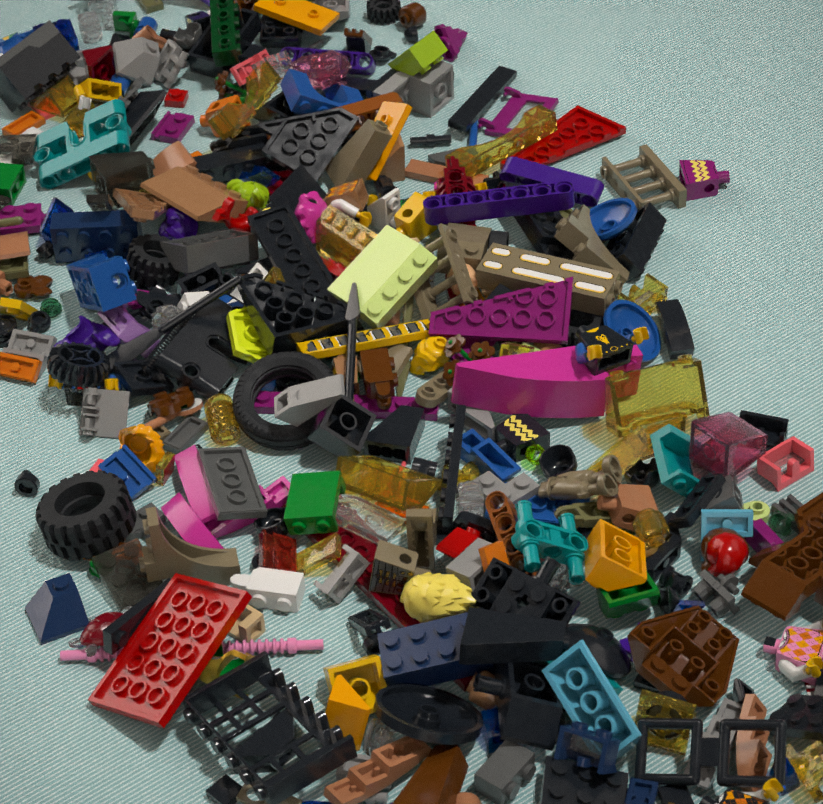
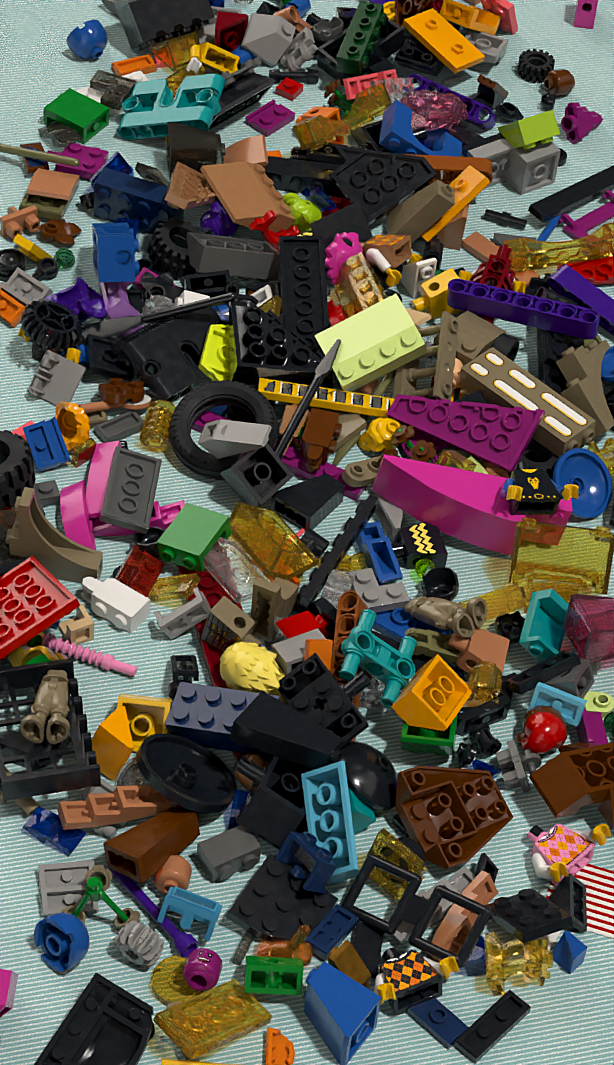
camera: 15 degrees right, 5 degrees up
(190, 81) = (311, 75): none -> black bar
(267, 697) = (49, 701): none -> dark tan piece

